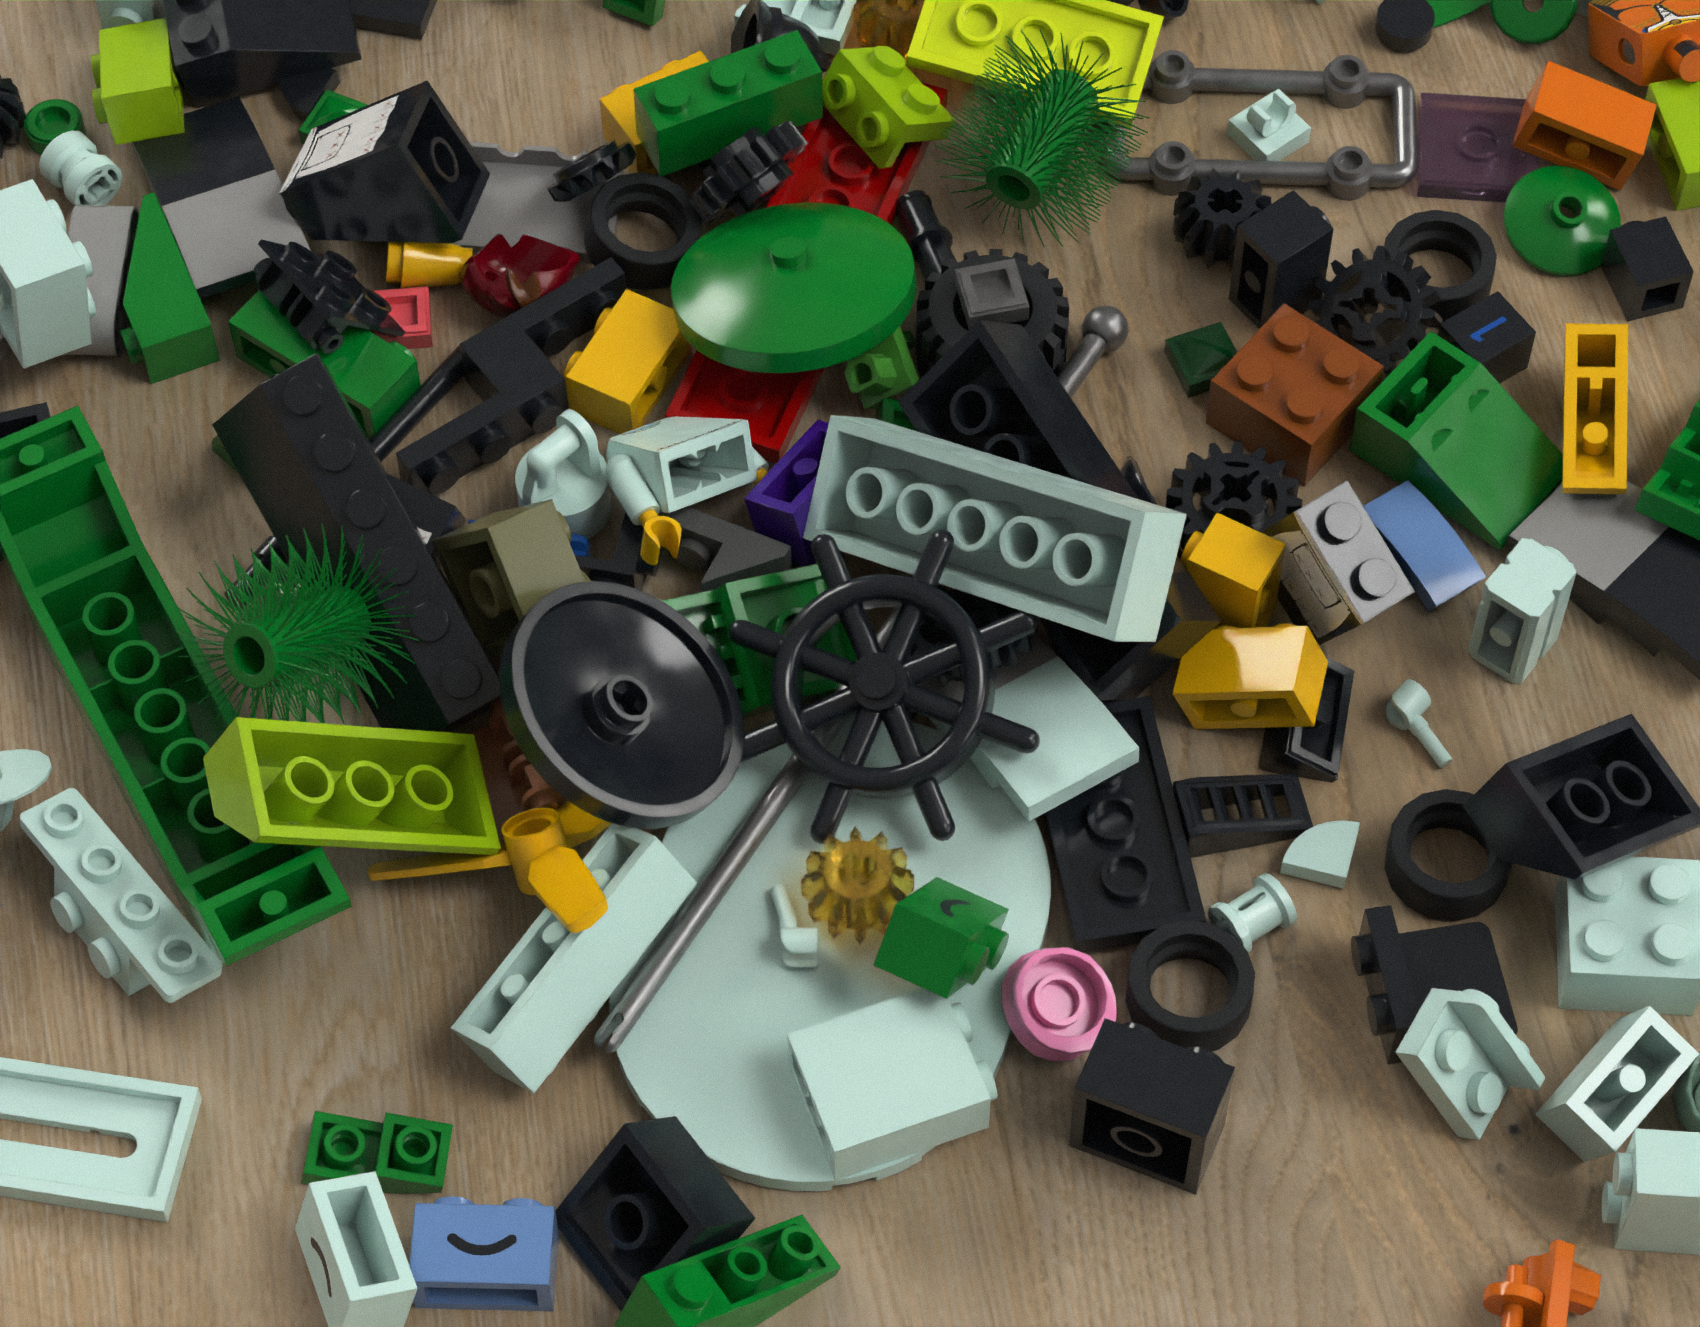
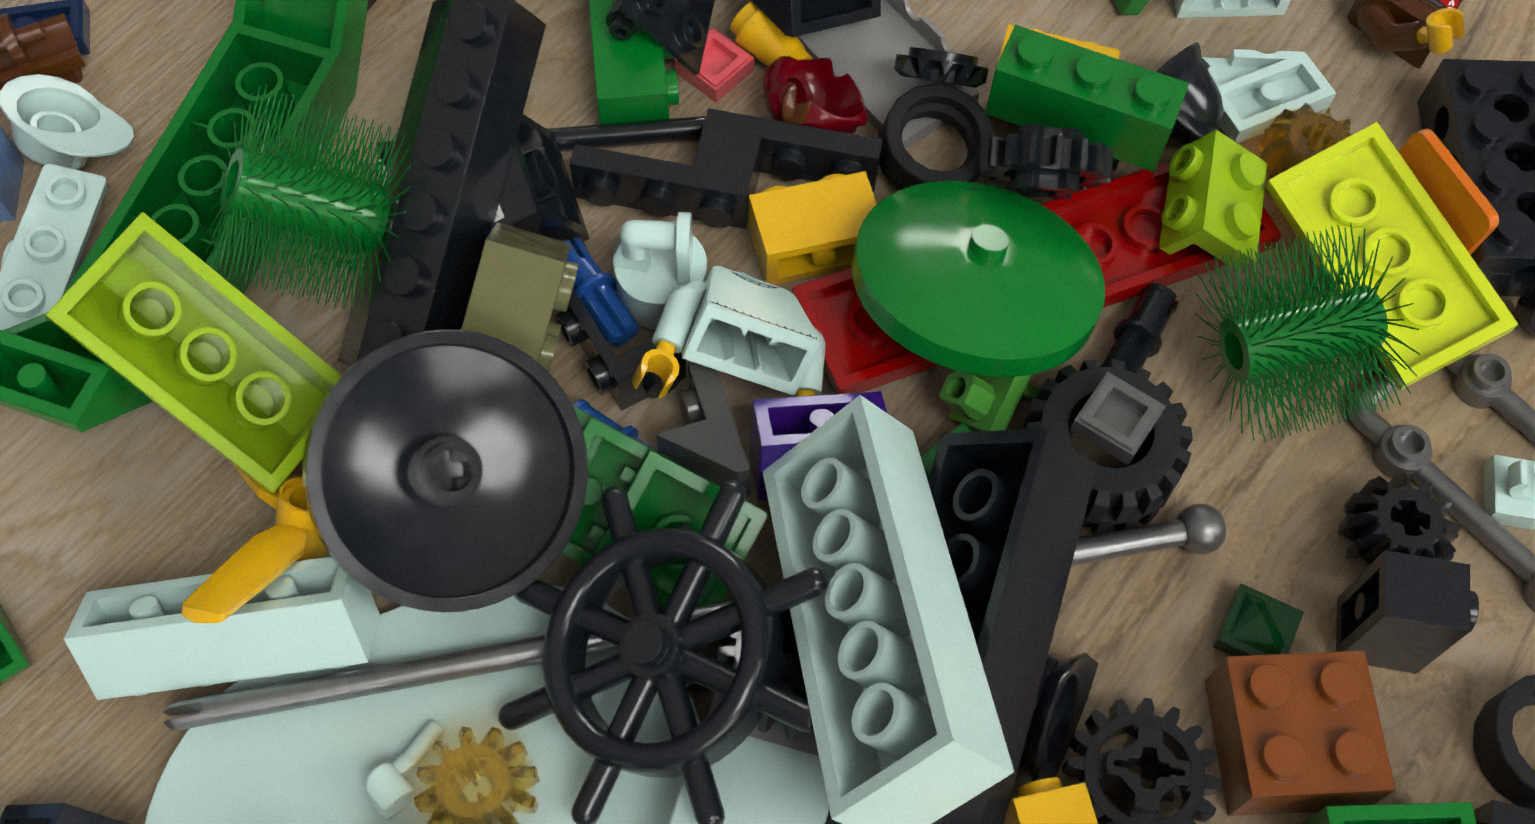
camera: 45 degrees right, 5 degrees up
(1360, 290) = (1466, 713): black gear -> none

